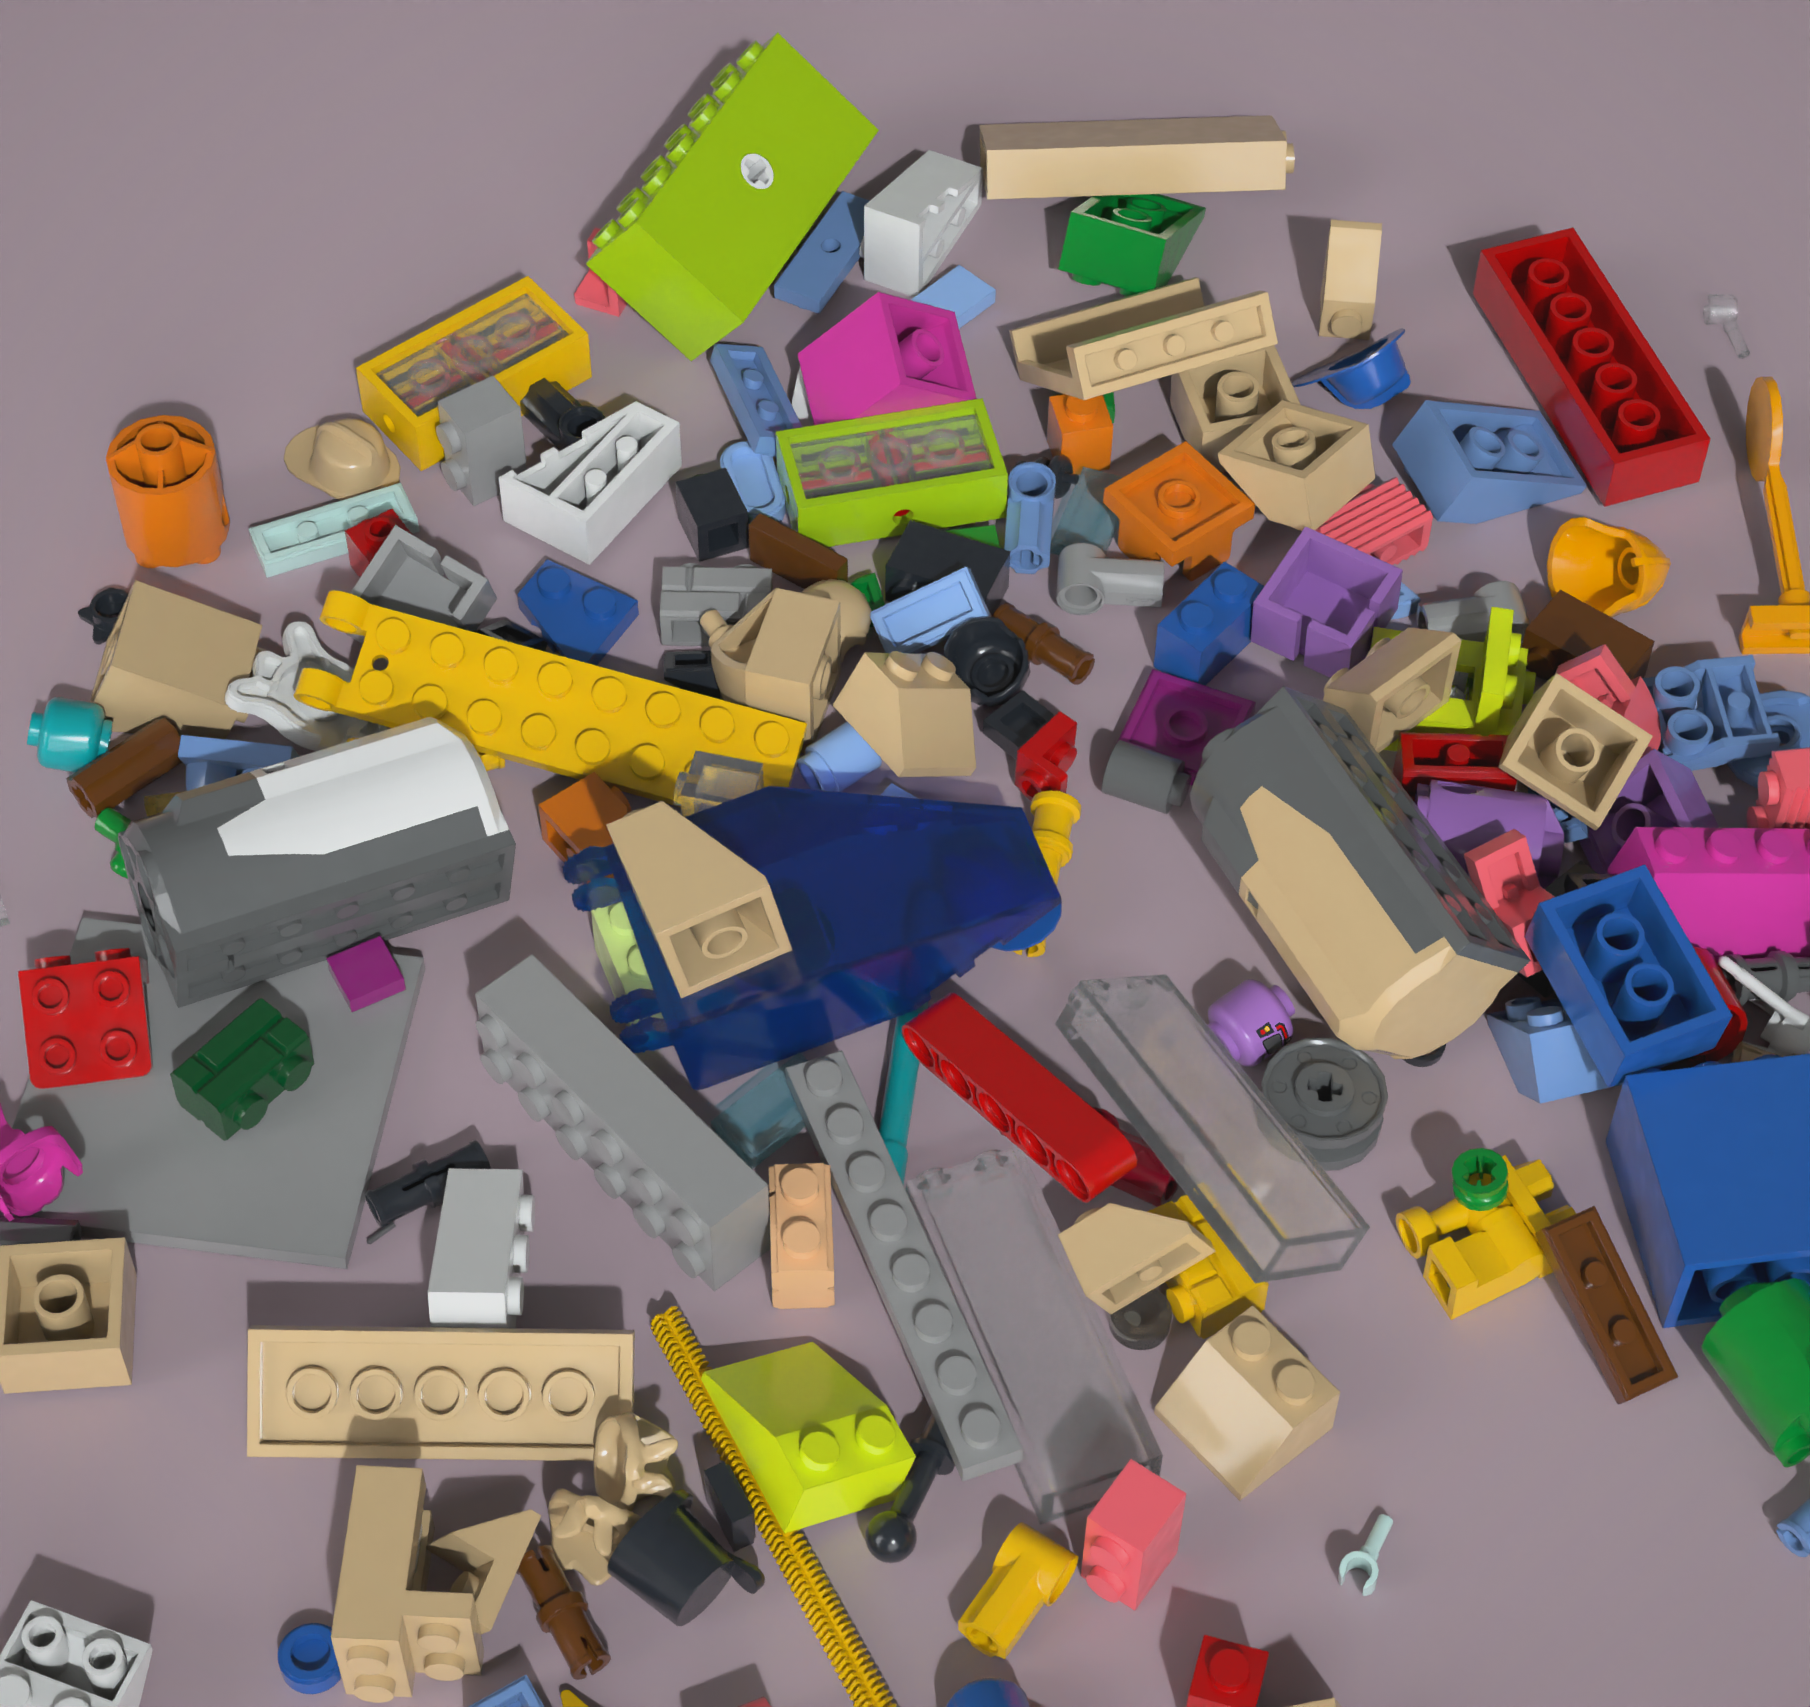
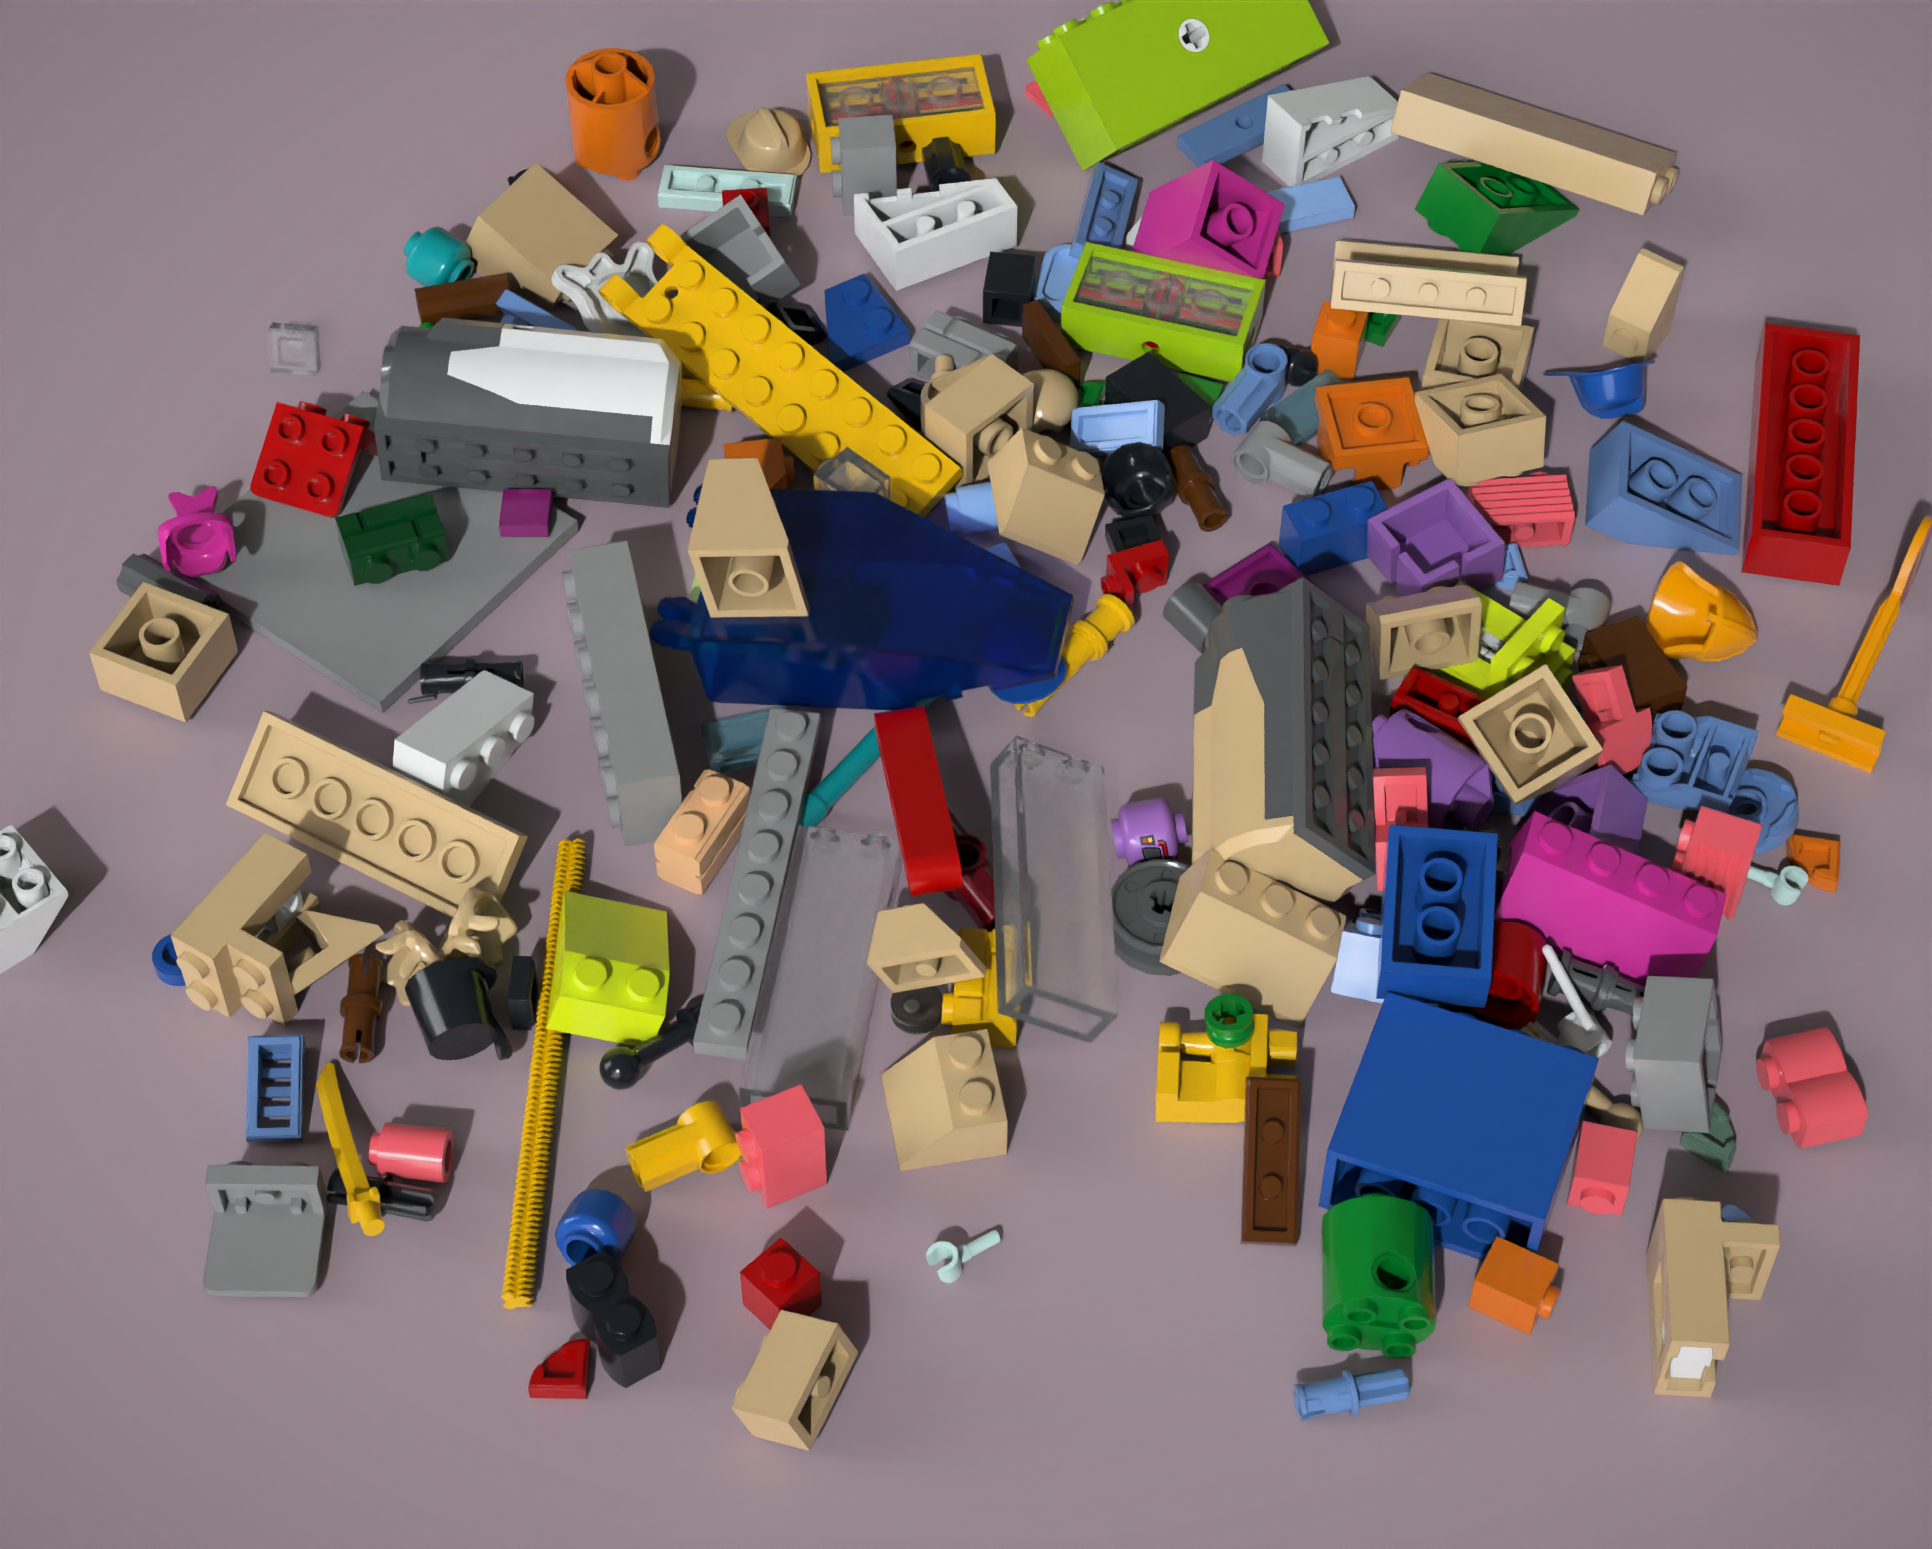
camera: 30 degrees right, 0 degrees up
(1436, 1081) = (1251, 937): none -> tan slope

